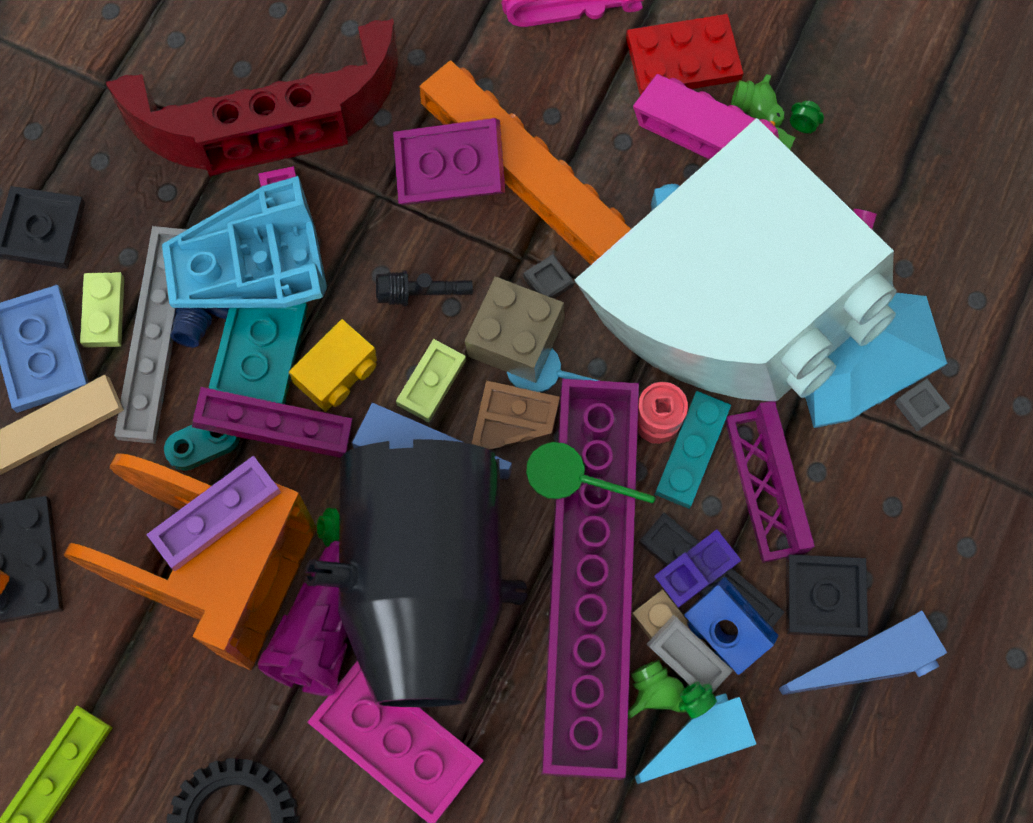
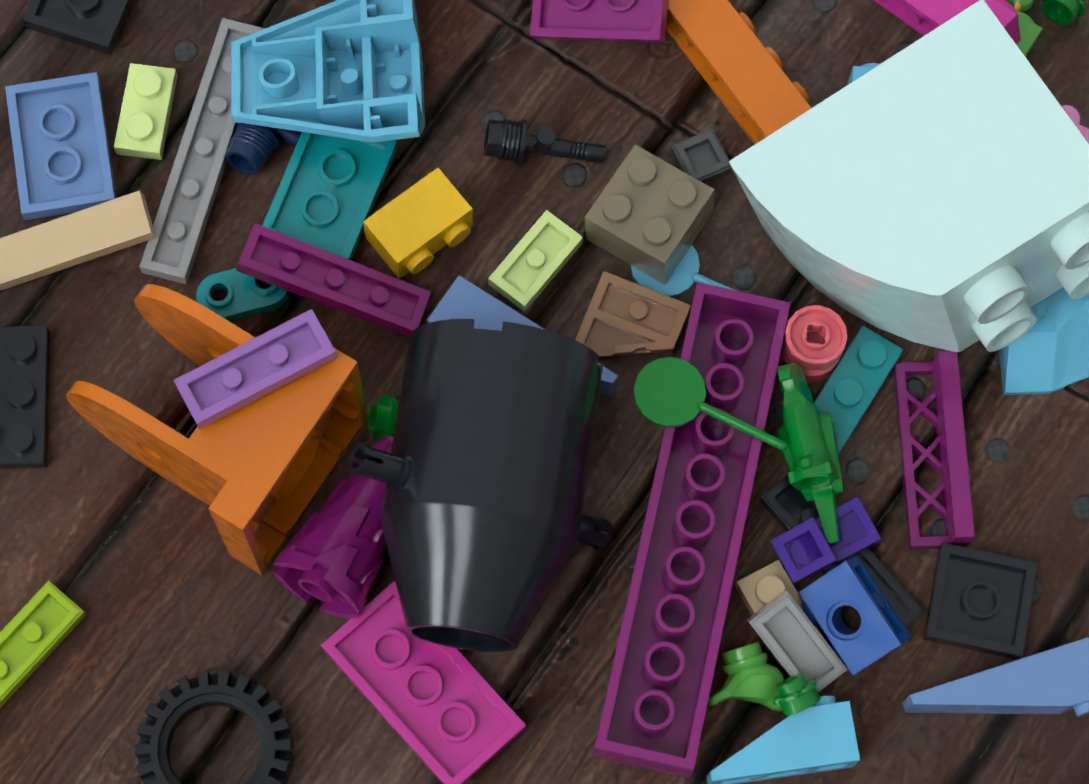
camera: 10 degrees right, 0 degrees up
(674, 497) = (810, 448): none -> green animal

